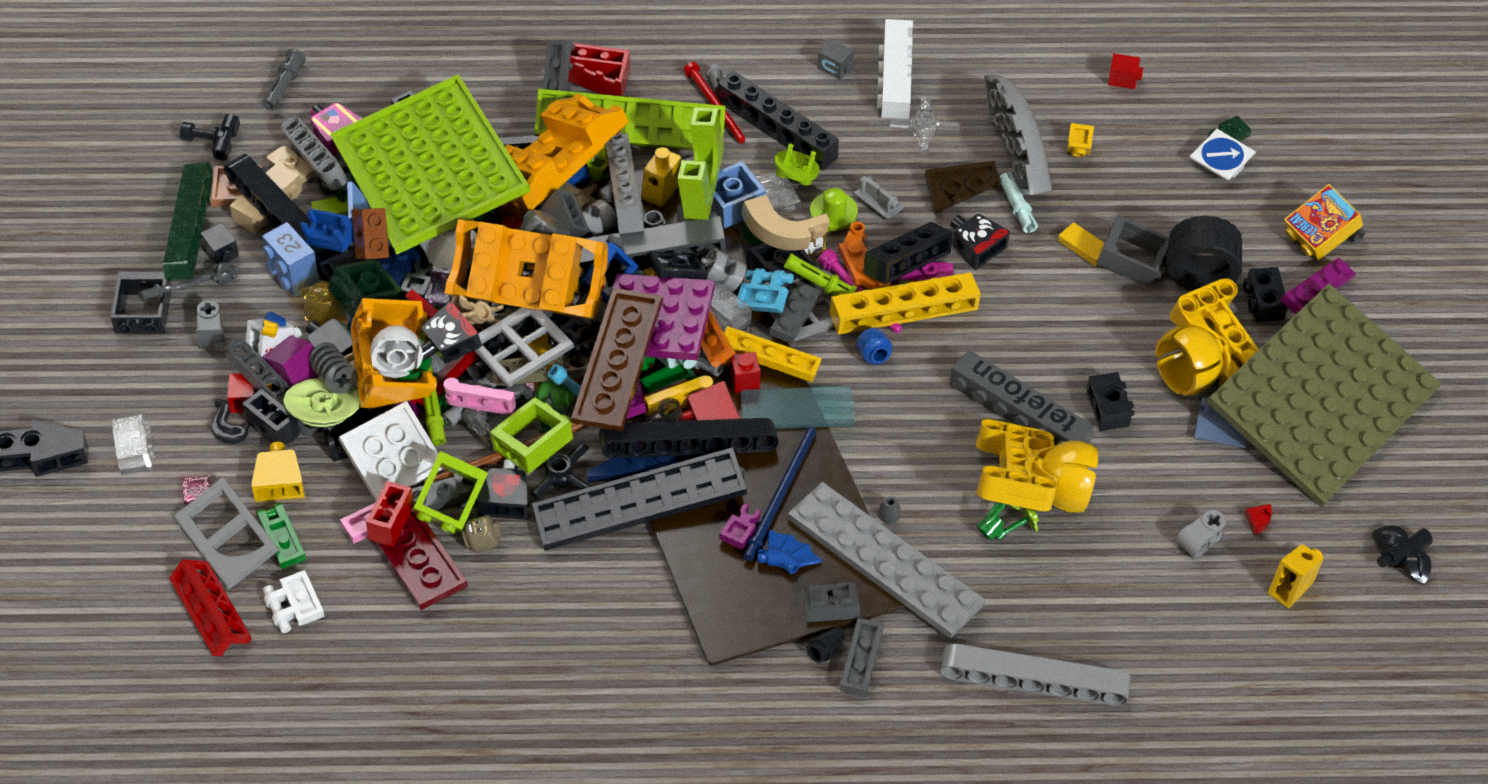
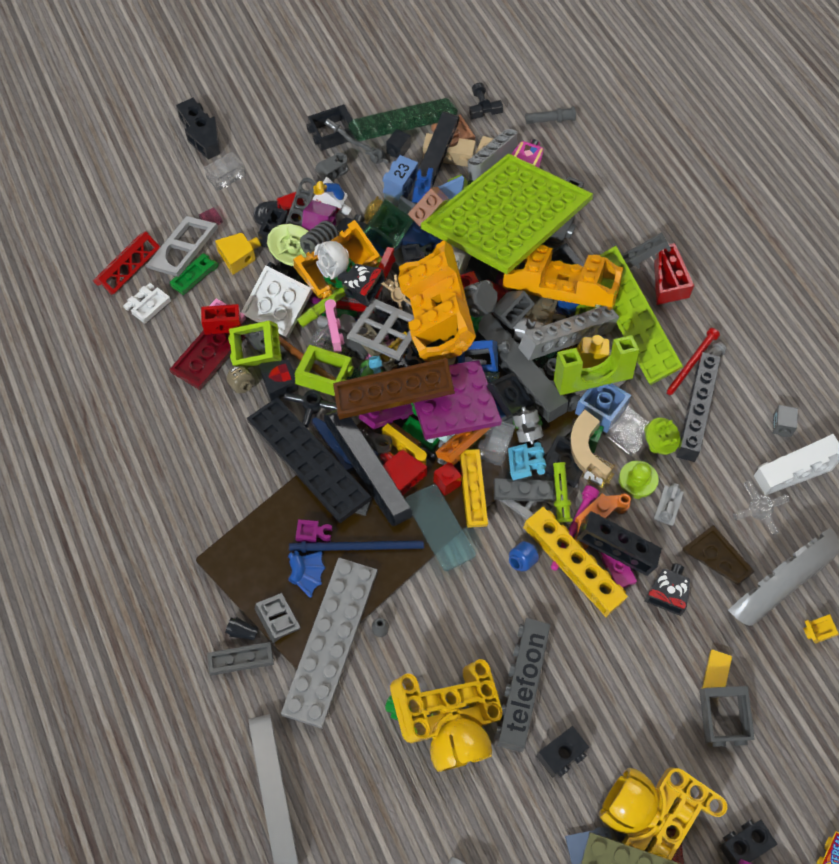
camera: 65 degrees right, 10 degrees up
(1021, 208) = (721, 611): light aqua pin -> none
(1209, 236) = (748, 774): black tyre -> none

